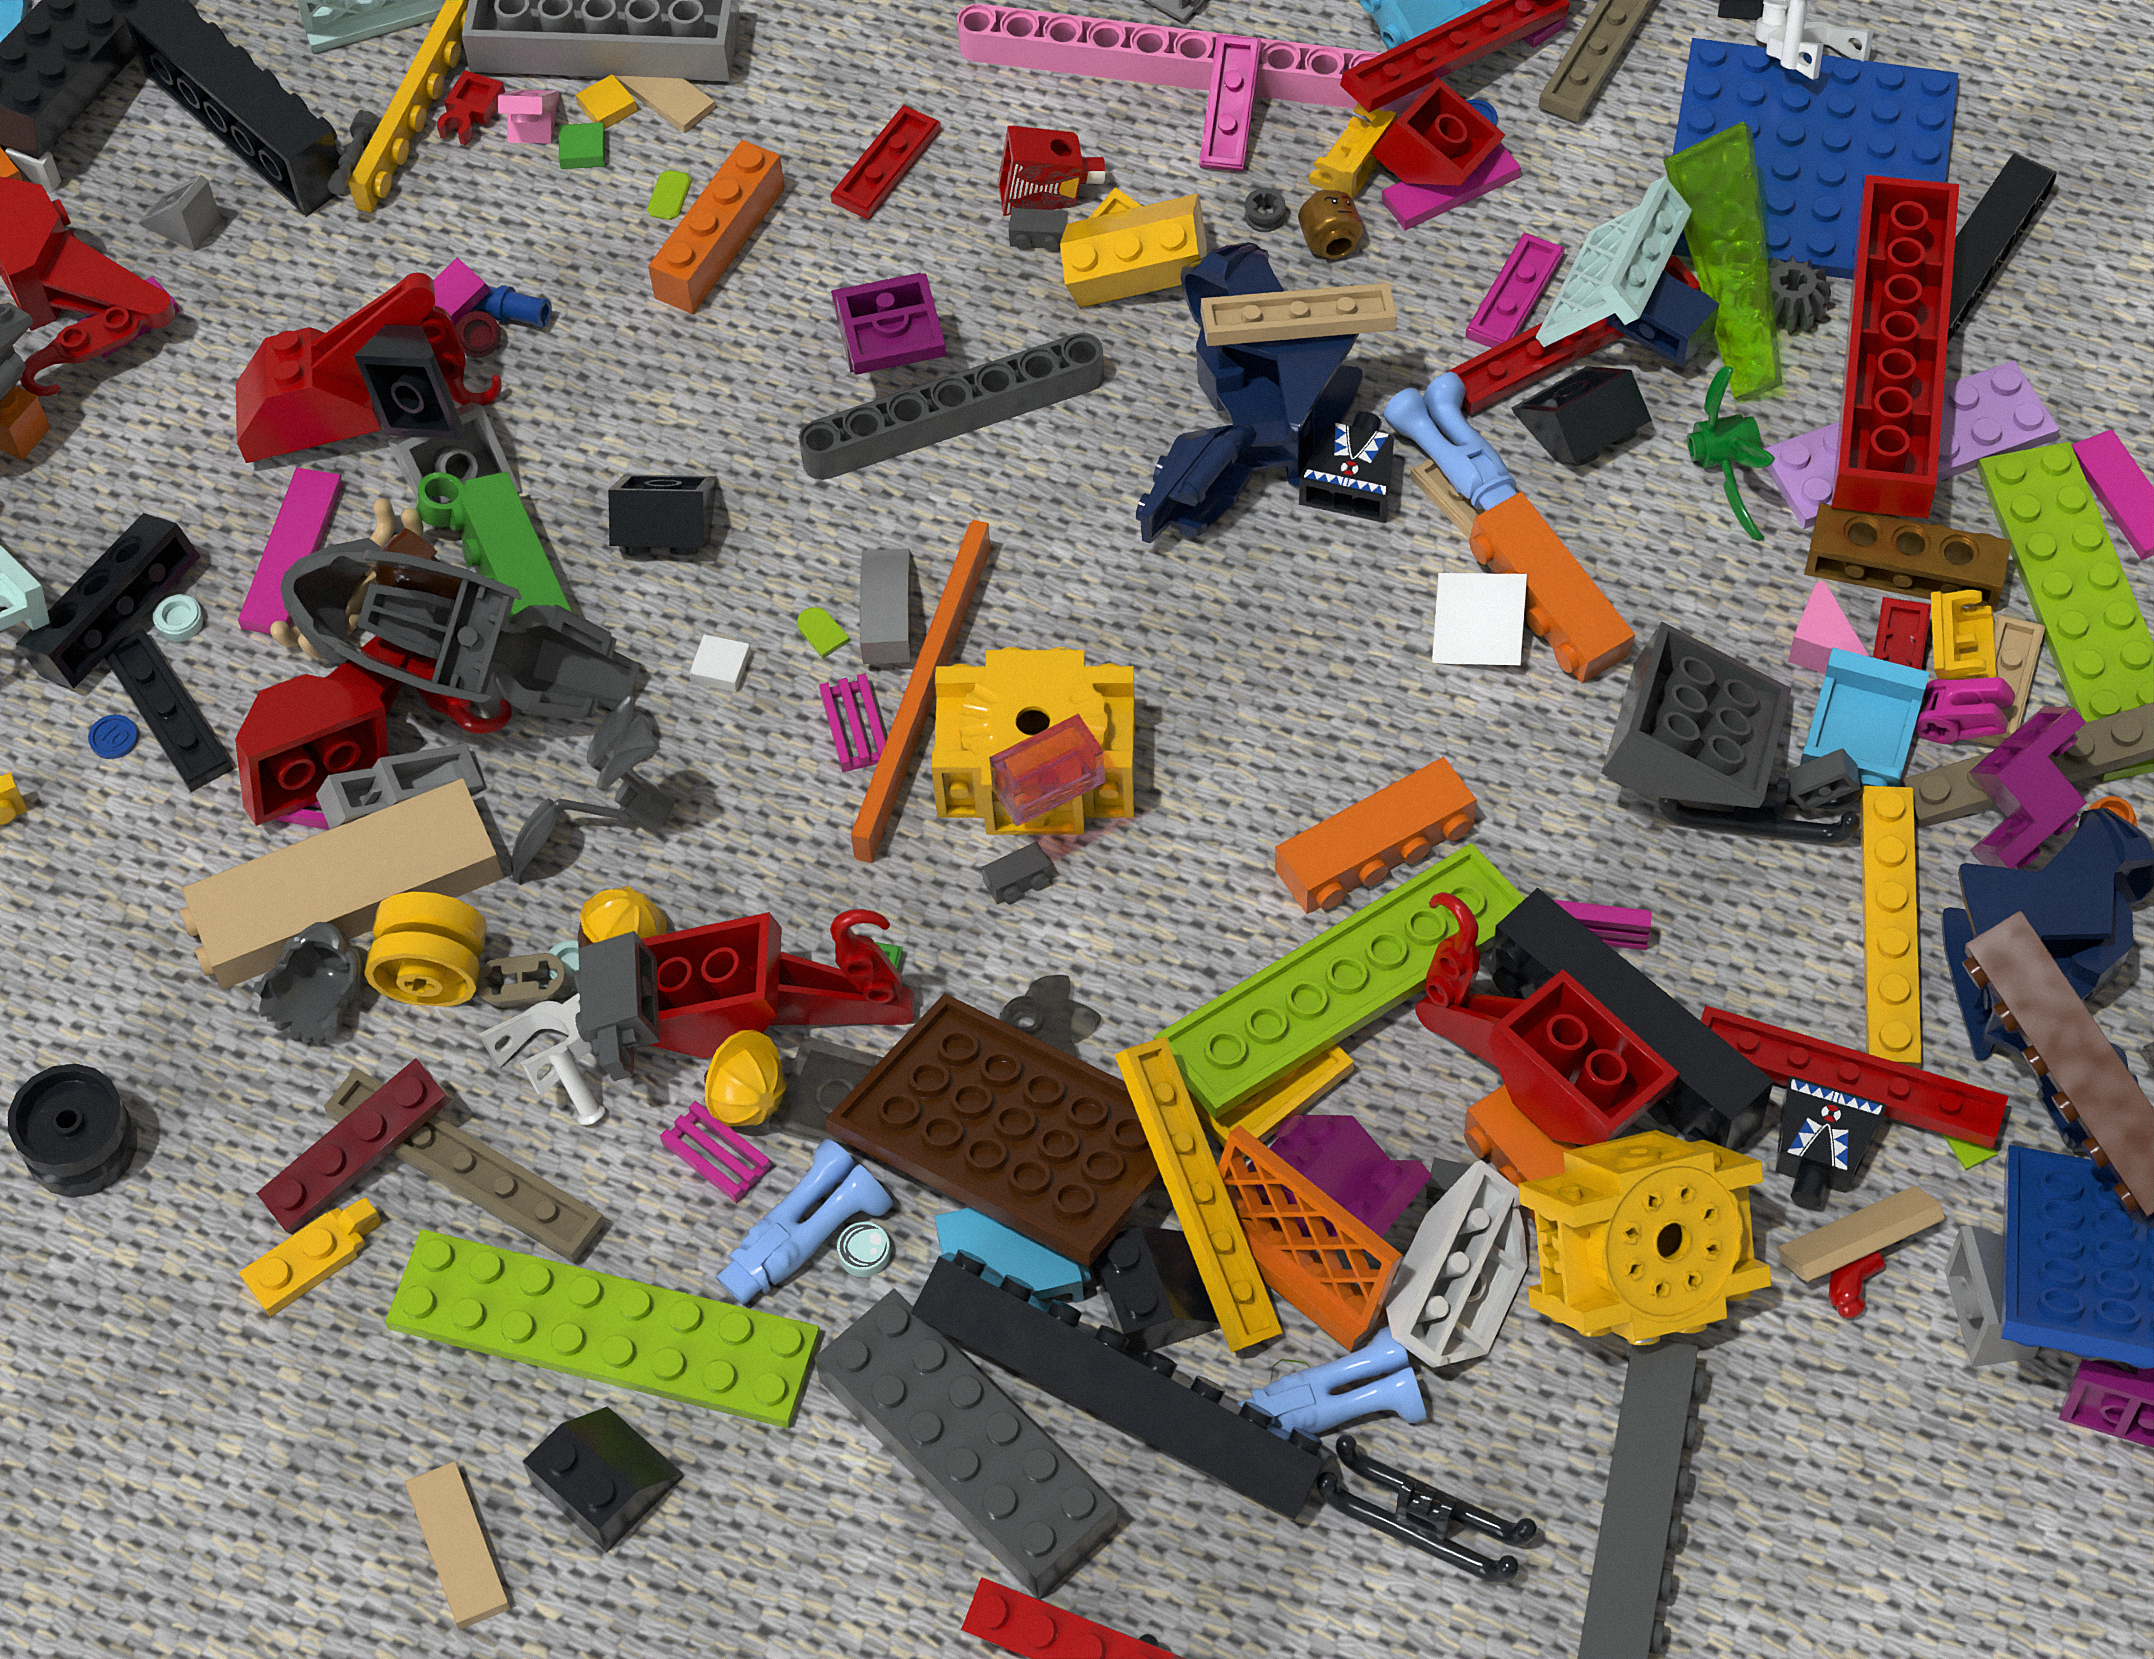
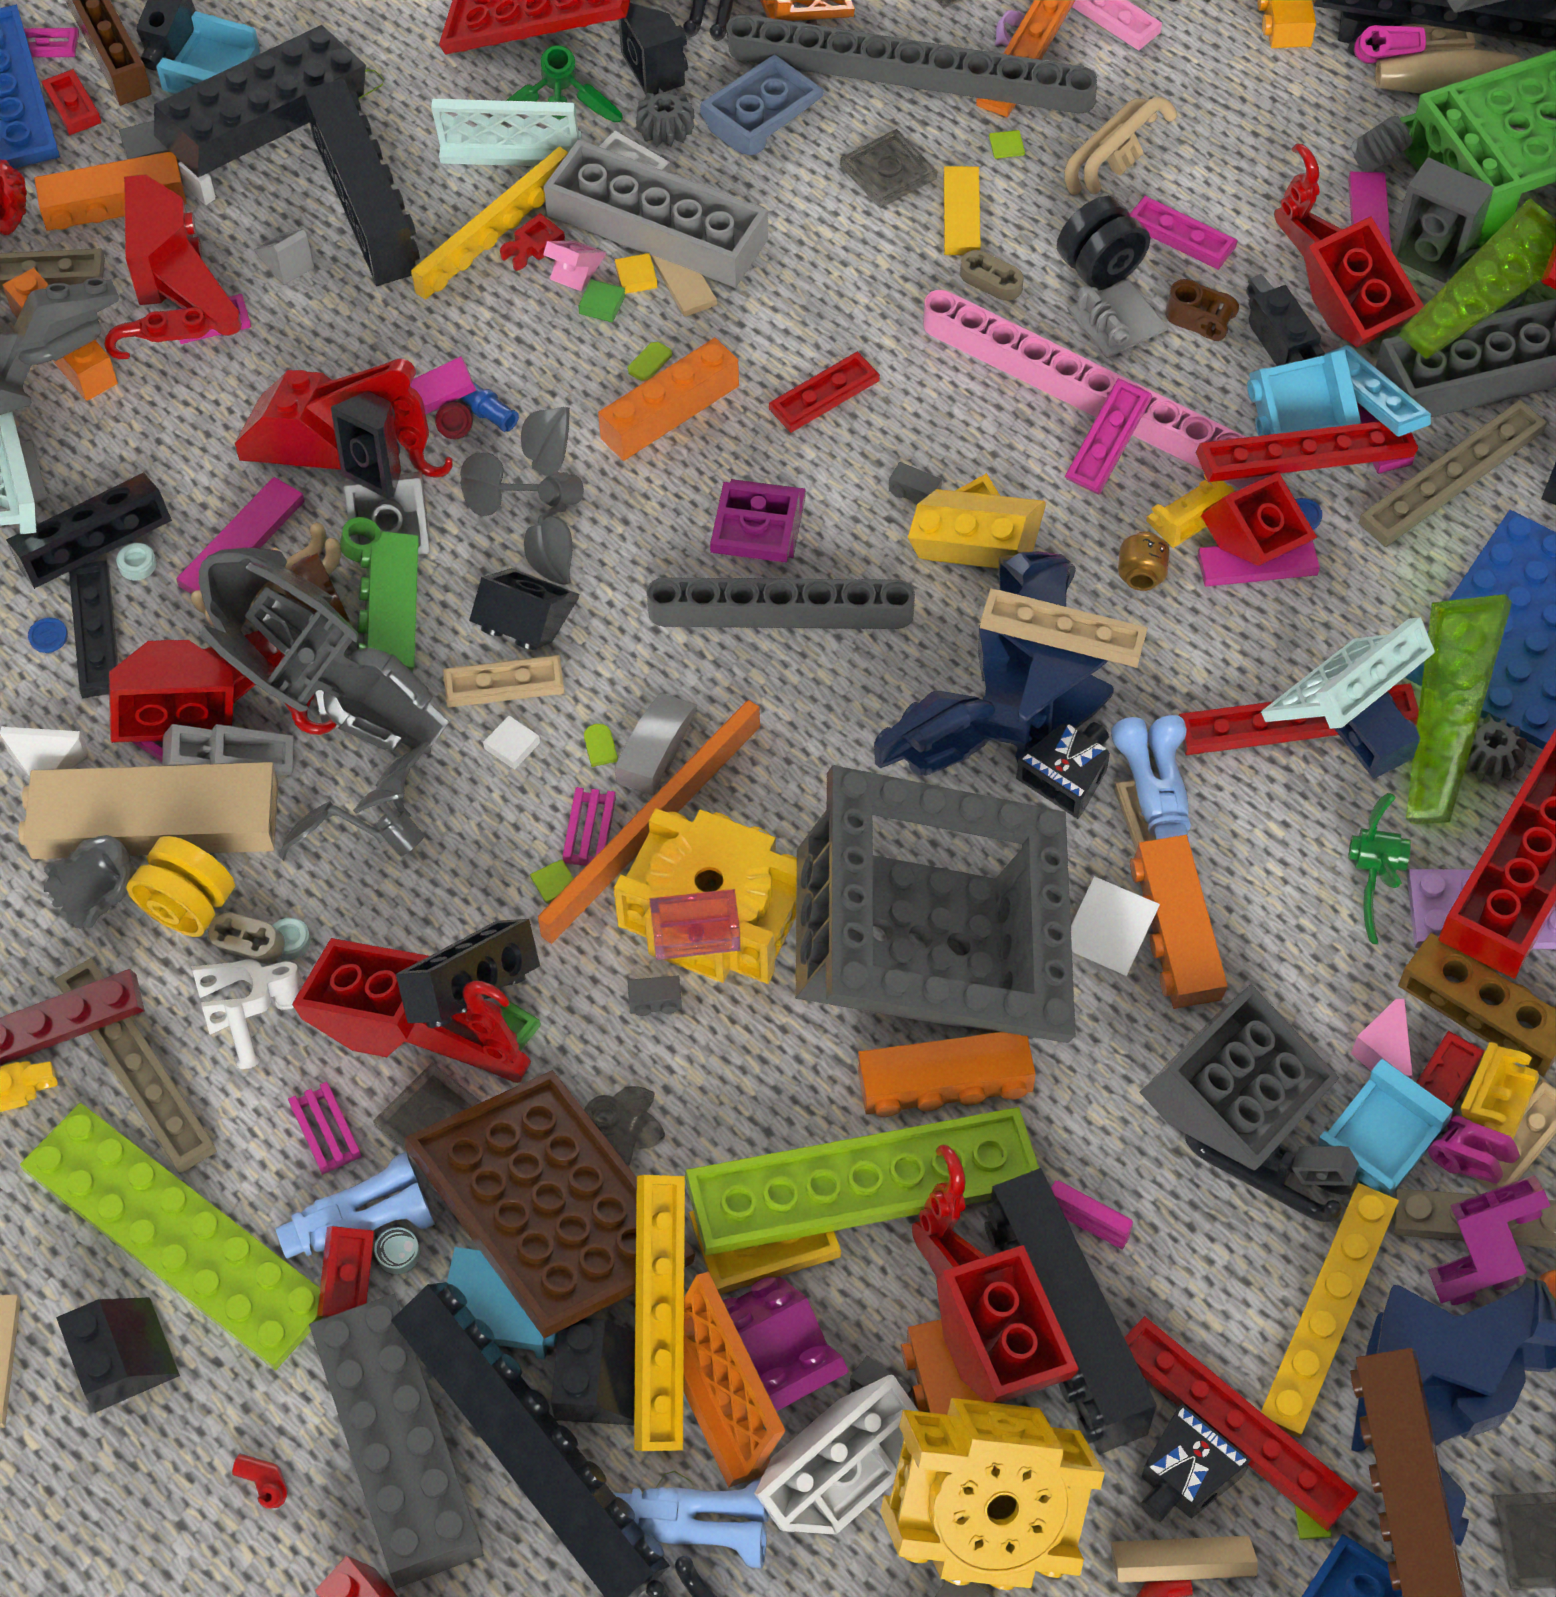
camera: 20 degrees right, 0 degrees up
(176, 862) = (44, 748): none -> white slope
(361, 130) = (417, 255): dark grey piece -> none
(617, 913) = (335, 916): yellow piece -> none
(617, 1000) = (292, 983): dark grey hinge -> none
(619, 310) = (544, 441): none -> dark grey plant
(677, 600) = (503, 681): none -> tan tile
(744, 1080) = (364, 1080): yellow piece -> none
(794, 932) = (493, 954): none -> black brick
(820, 1289) = (345, 1270): none -> red plate
(839, 1542) = (267, 1479): none -> red arm
(841, 795) = (551, 880): none -> lime piece
(1044, 169) = (938, 440): red torso -> none
(1262, 198) = (1101, 521): dark grey bush -> none
(1381, 657) = (1010, 926): none -> dark grey plate
(1515, 291) = (1269, 667): dark pink tile -> none
(1585, 413) = (1276, 788): black slope -> none

